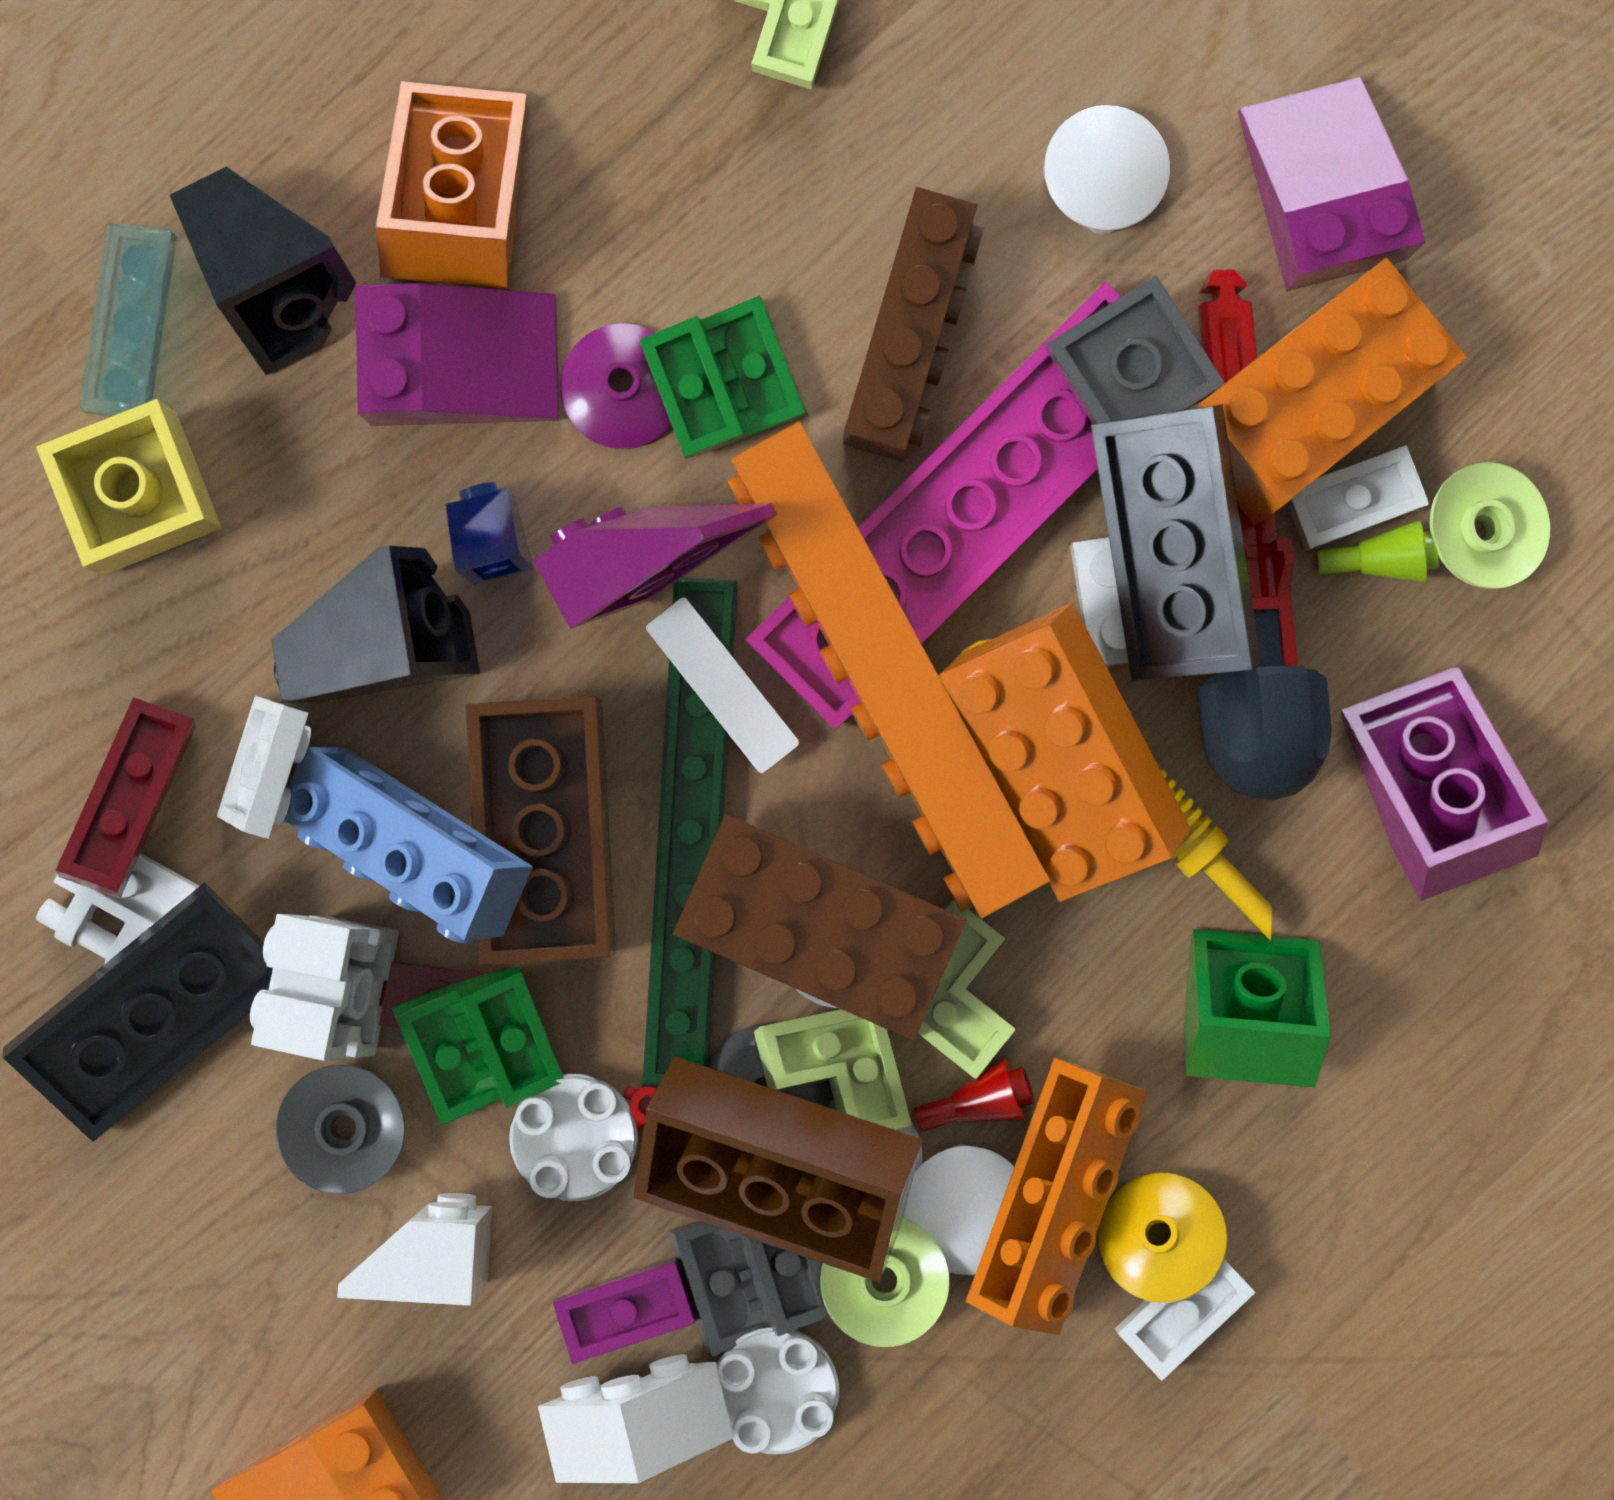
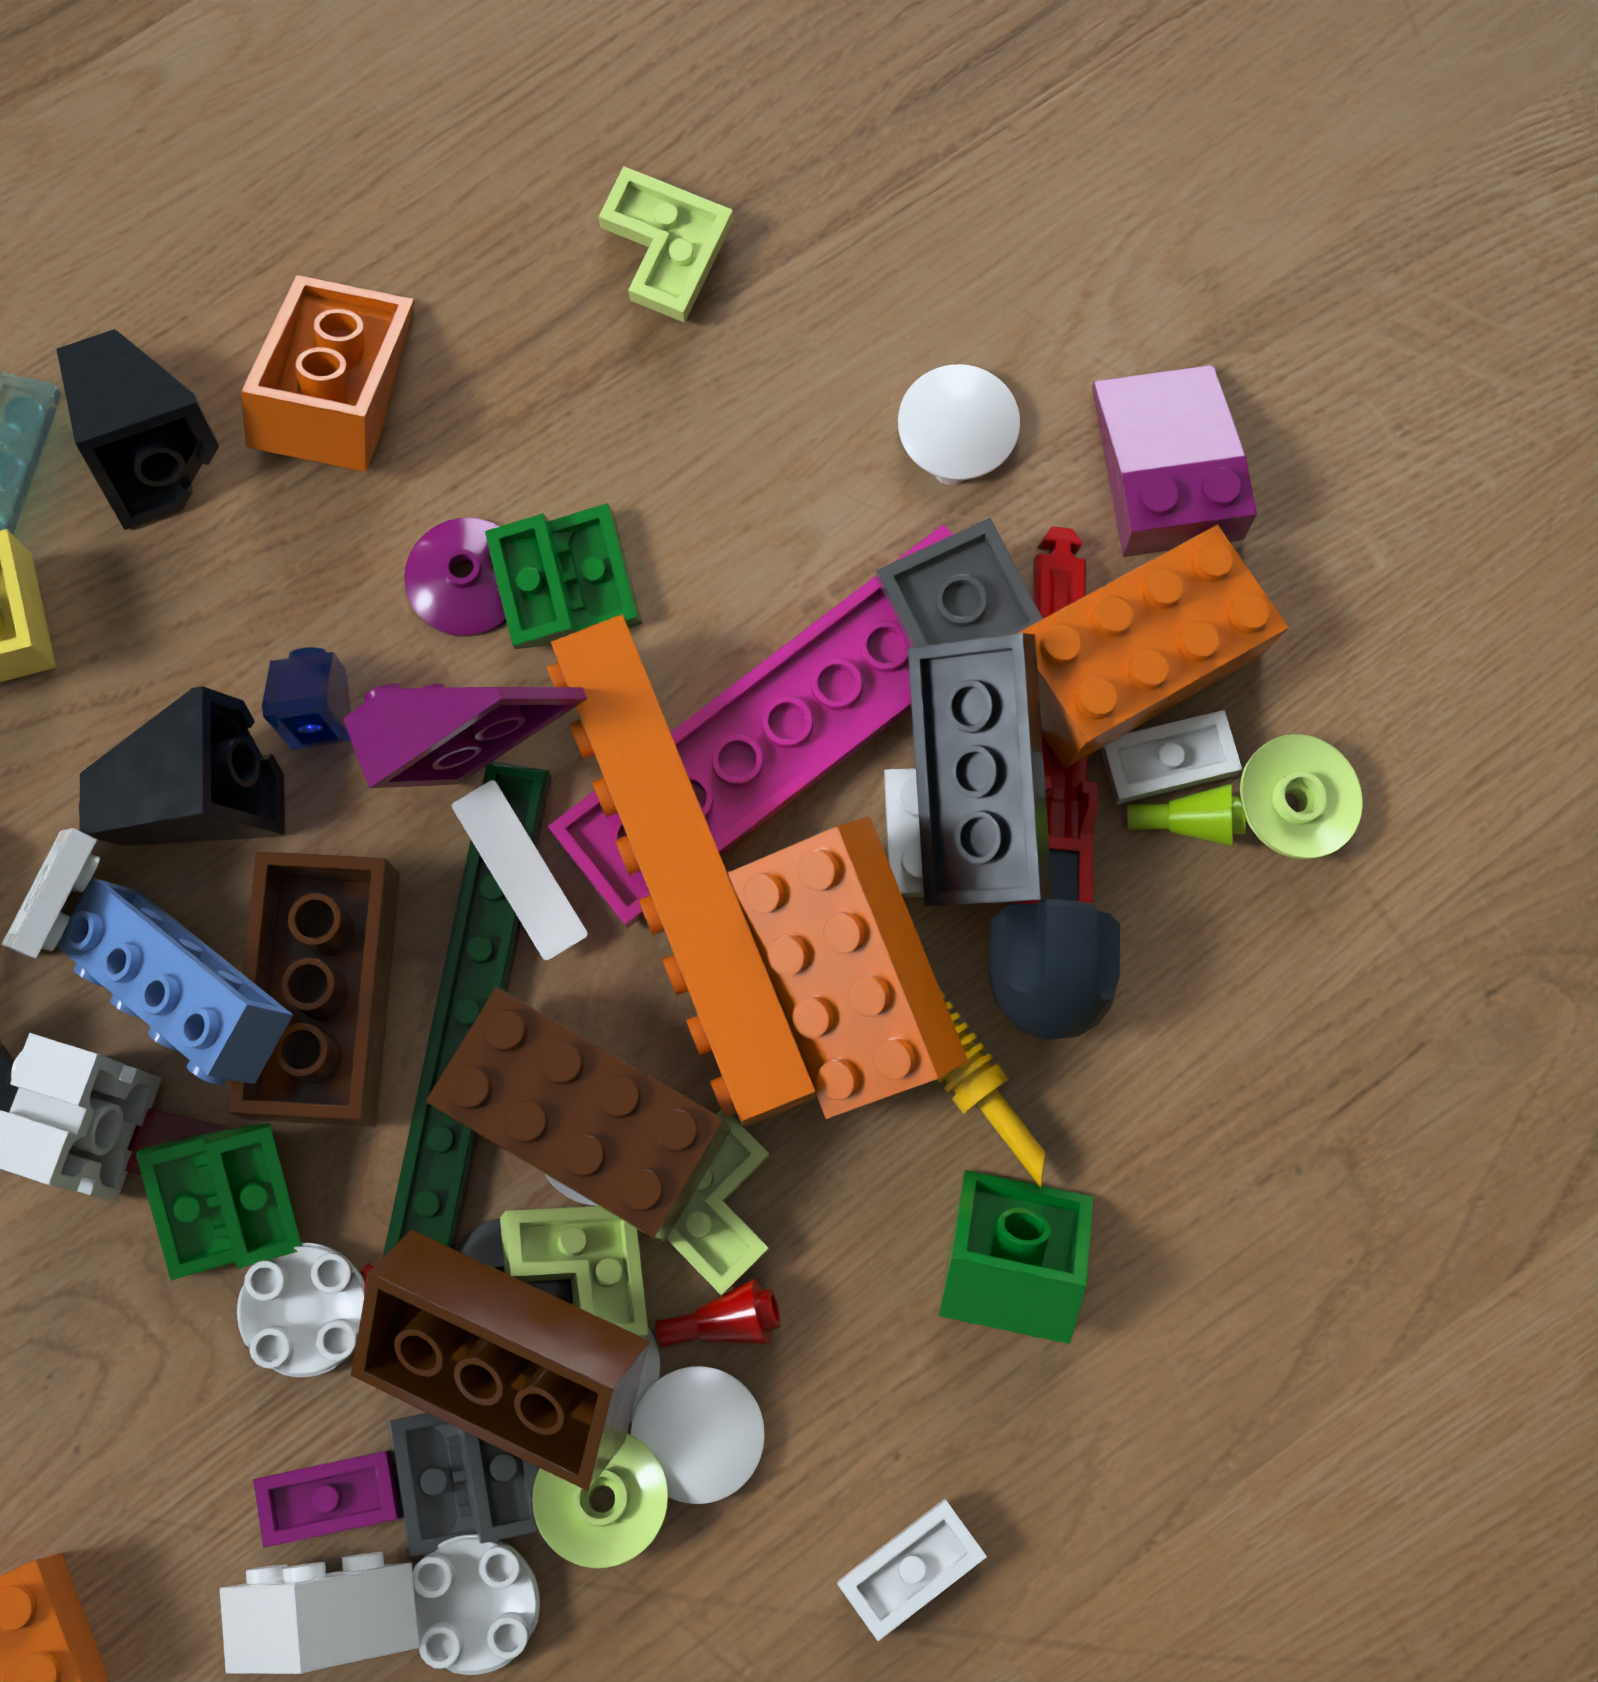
camera: 10 degrees right, 10 degrees down
(310, 1140) = (36, 1265): dark grey dish -> none
(431, 1258) = (130, 1409): white slope -> none
(455, 355) = (304, 527): magenta slope -> none
(909, 325) = (748, 545): reddish brown brick -> none
(1056, 1198) = (787, 1429): orange brick -> none
(1183, 1263) = (916, 1511): yellow dish -> none
(1443, 783) = (1233, 1049): magenta slope -> none

